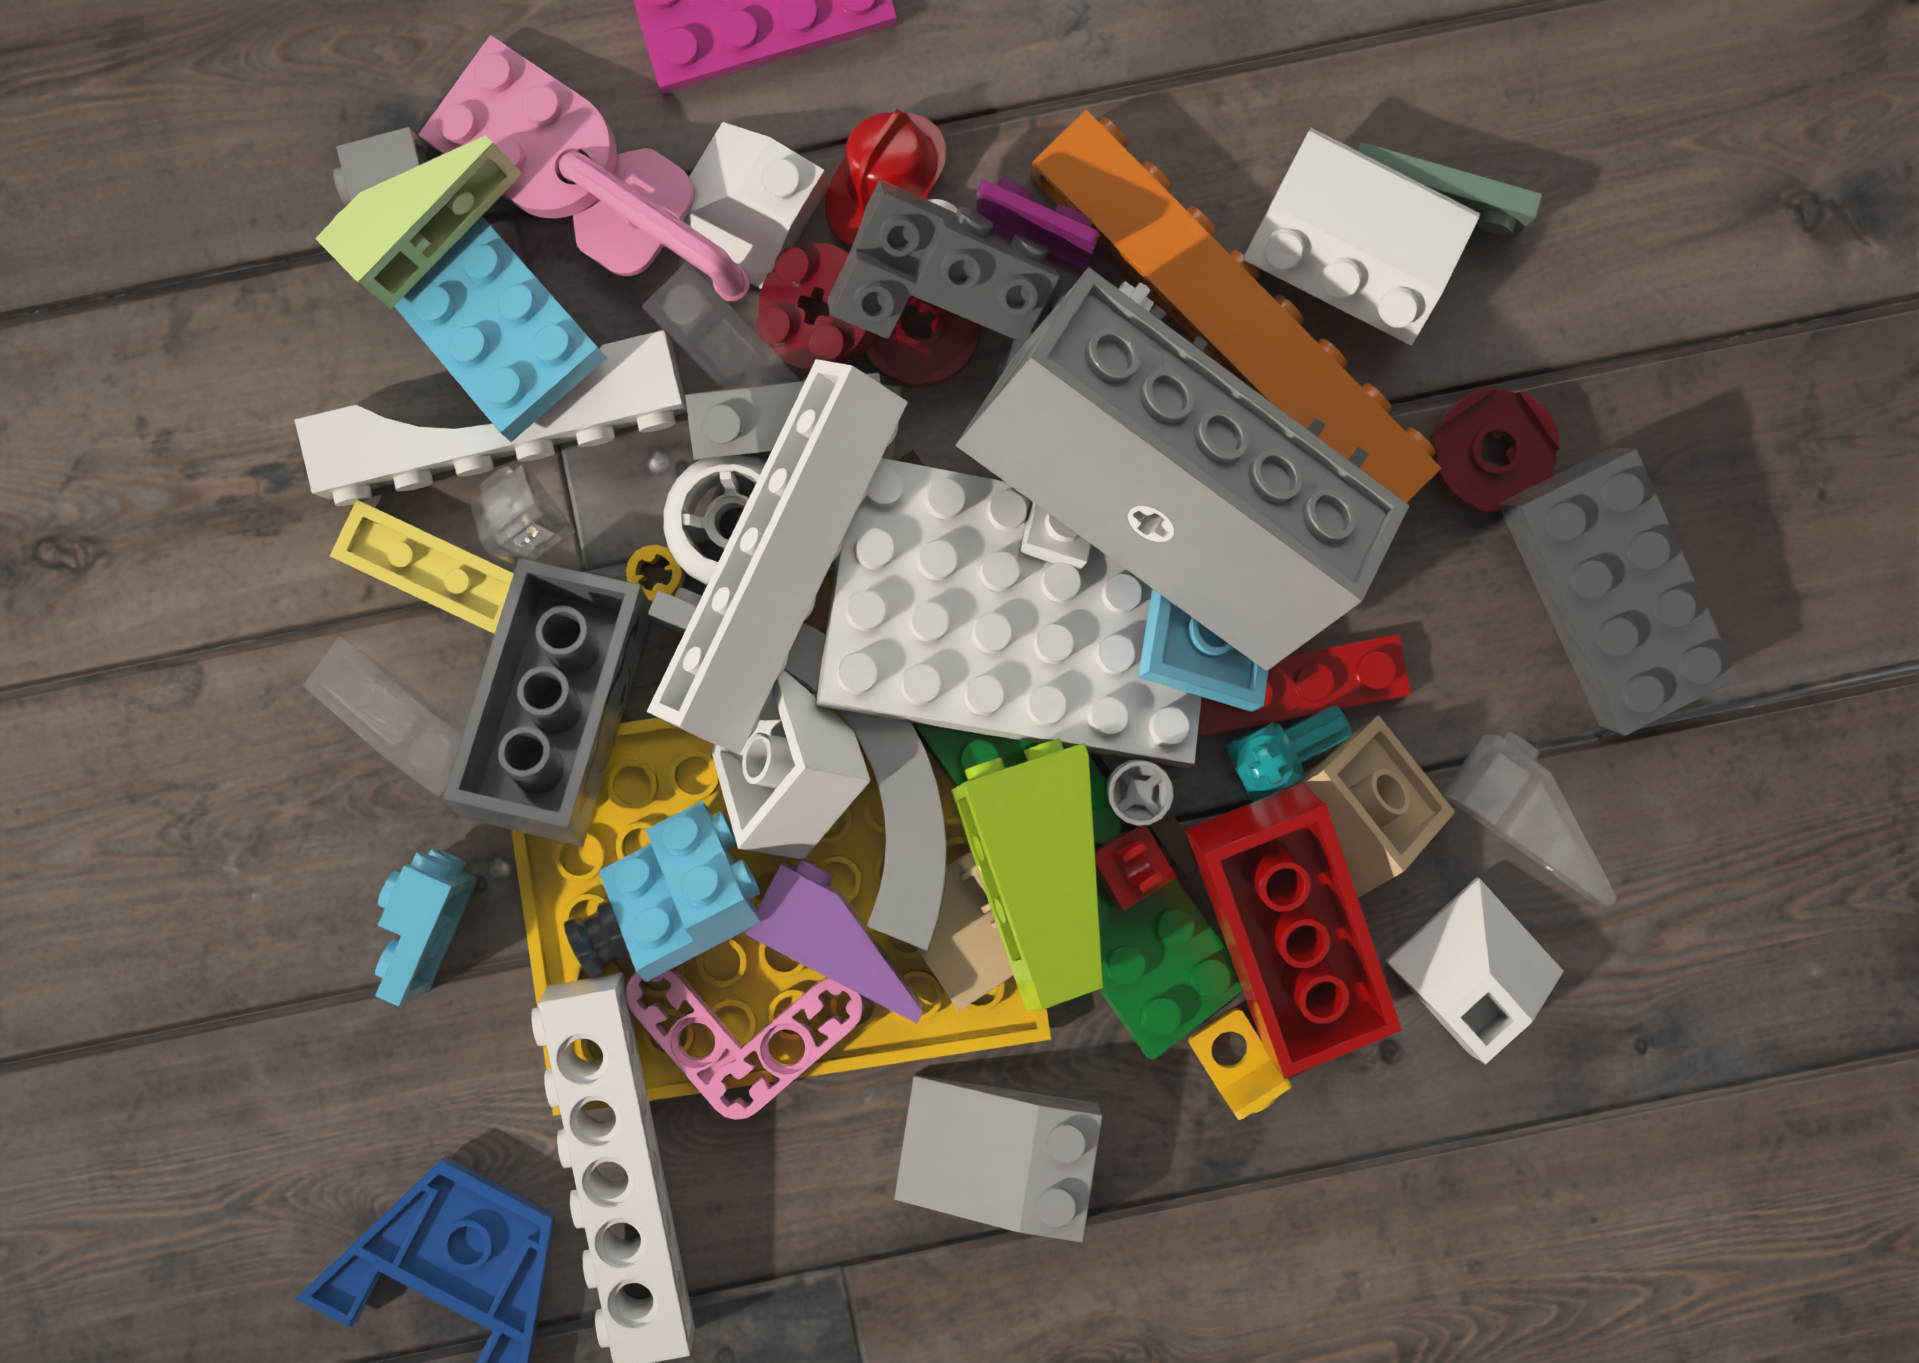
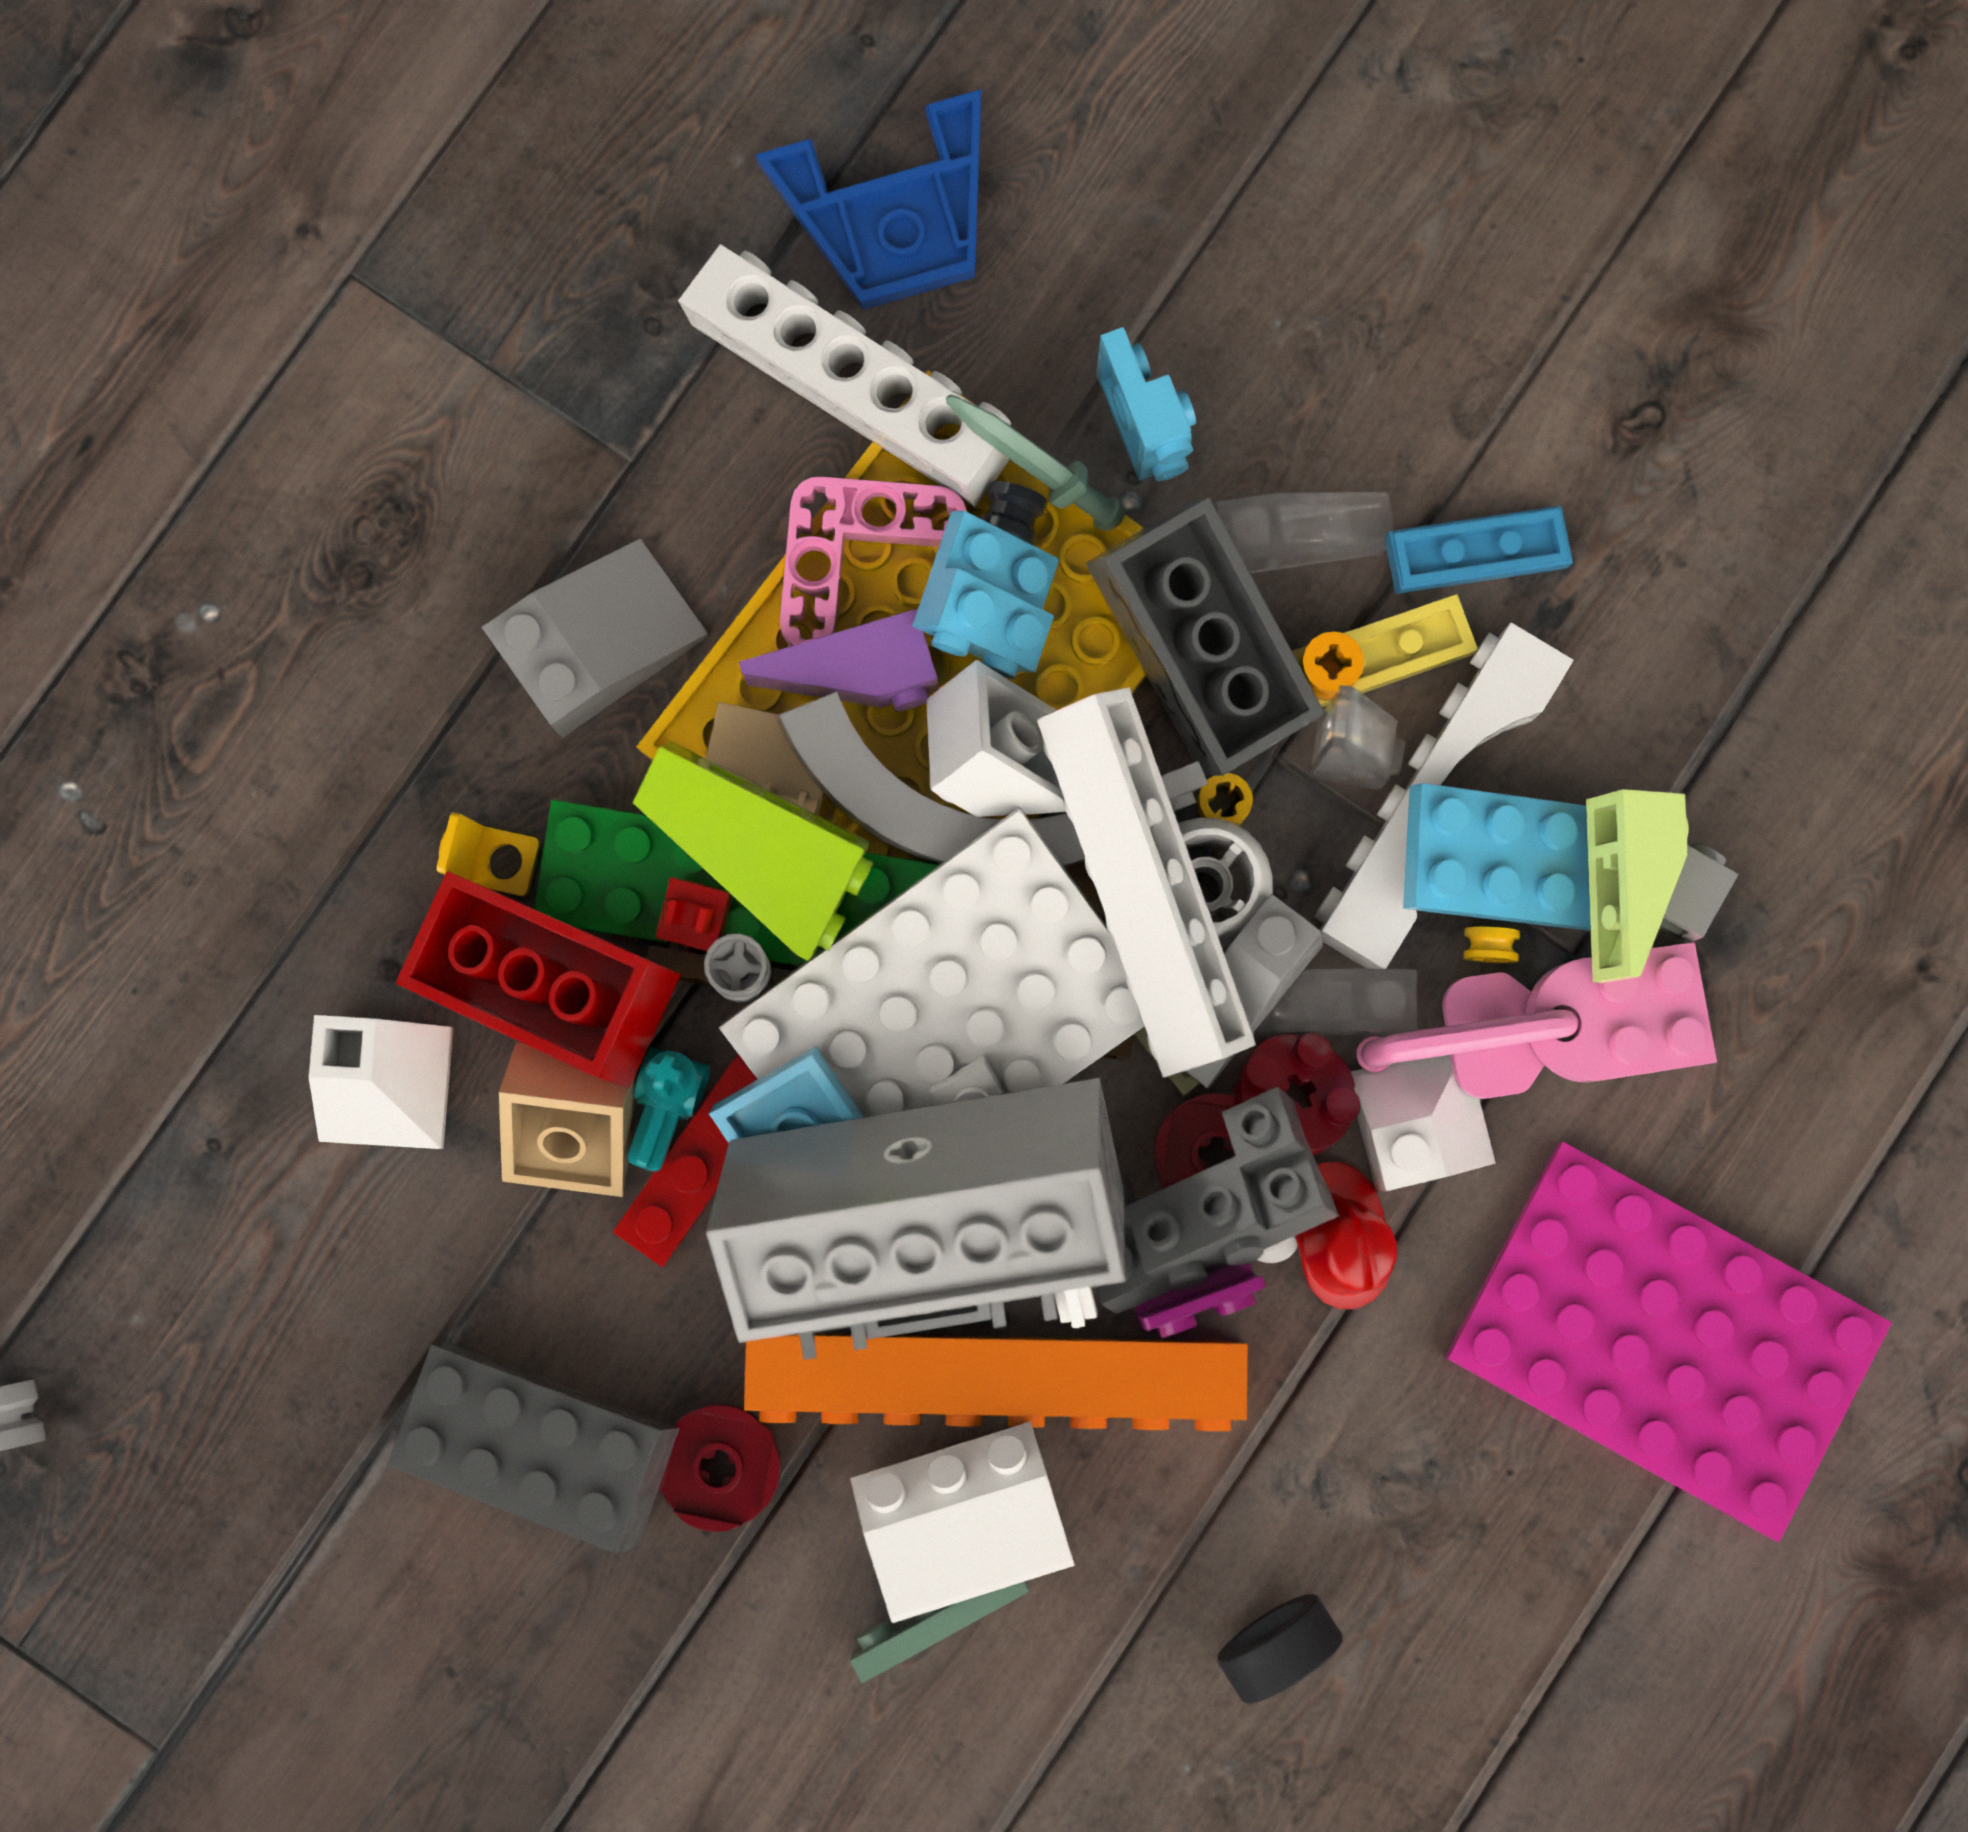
camera: 140 degrees right, 5 degrees down
(280, 575) = (1478, 549): none -> dark azure tile
(485, 596) = (1328, 674): none -> light orange wheel
(538, 921) = (1065, 483): none -> sand green sword
(567, 276) = (1491, 944): none -> yellow bush
(1525, 808) = (459, 1228): clear slope -> none

